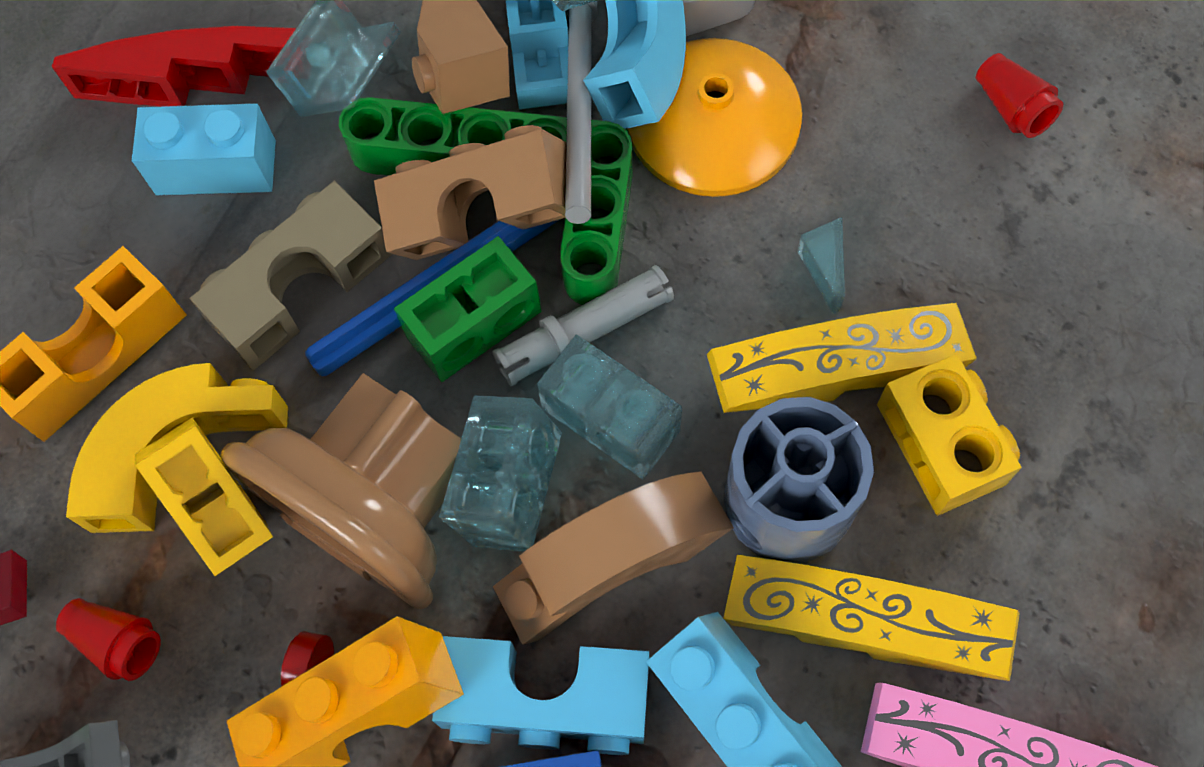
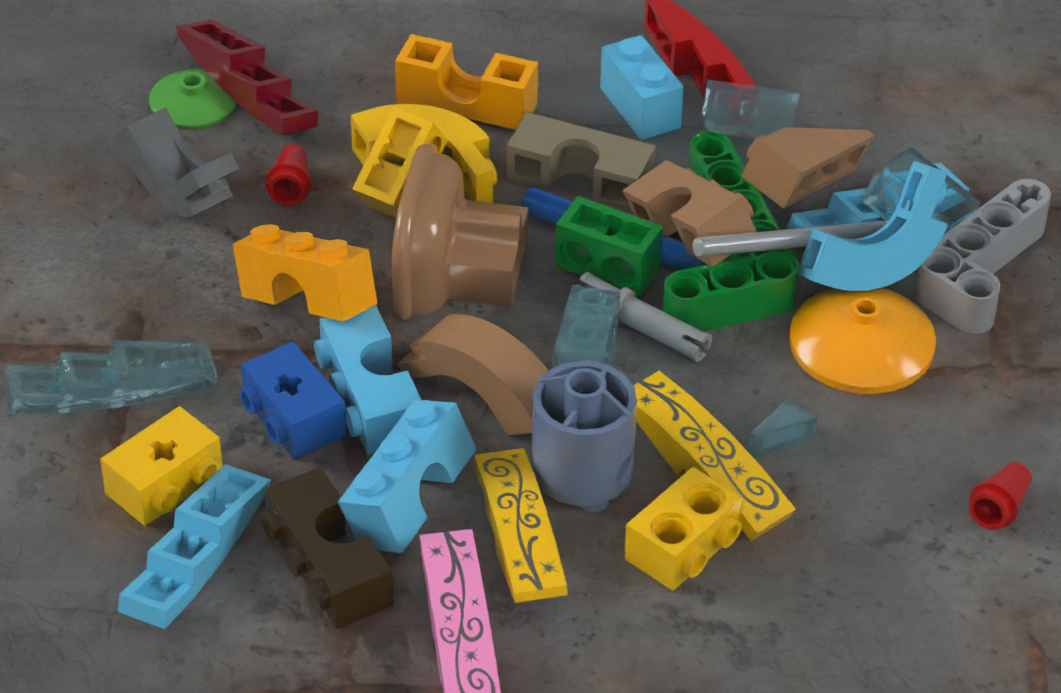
camera: 60 degrees right, 25 degrees down
(501, 473) = (505, 289): clear light blue brick -> none

